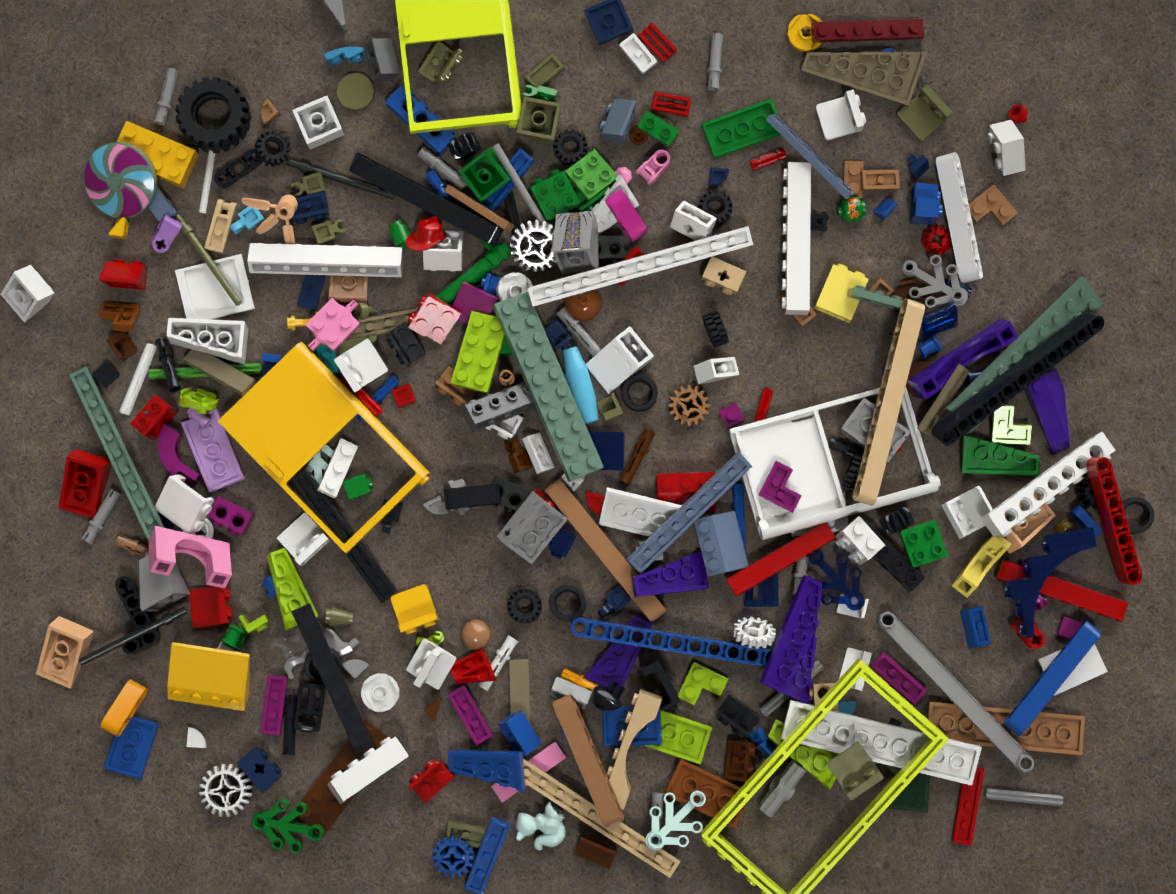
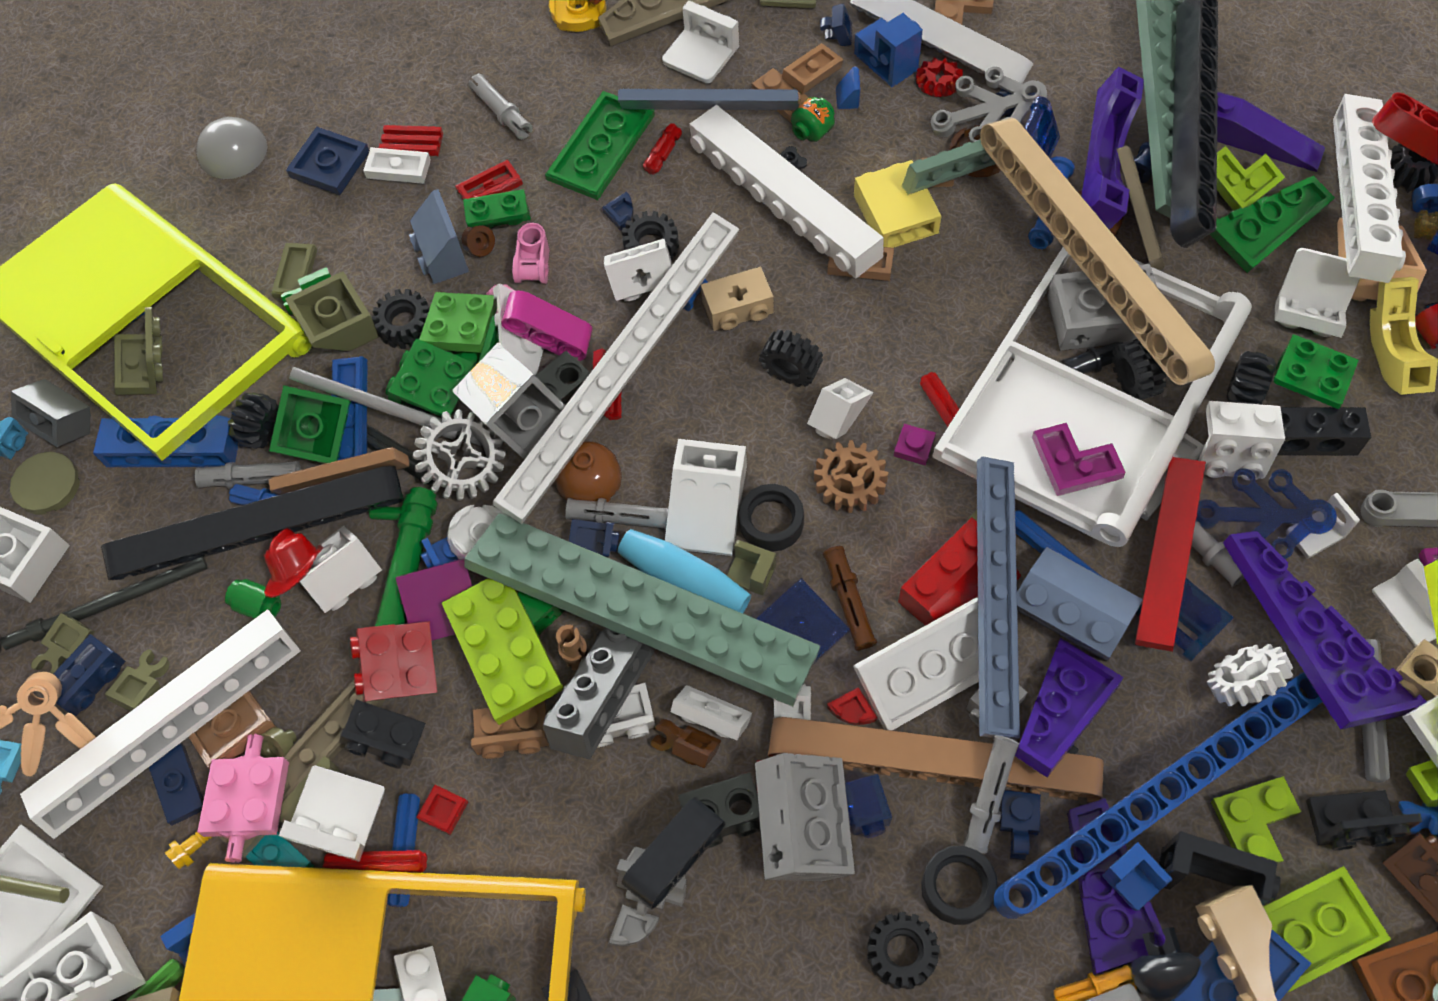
camera: 40 degrees left, 20 degrees down
(603, 586) = (986, 808): none -> light grey pin
(631, 660) = (1137, 877): none -> blue panel

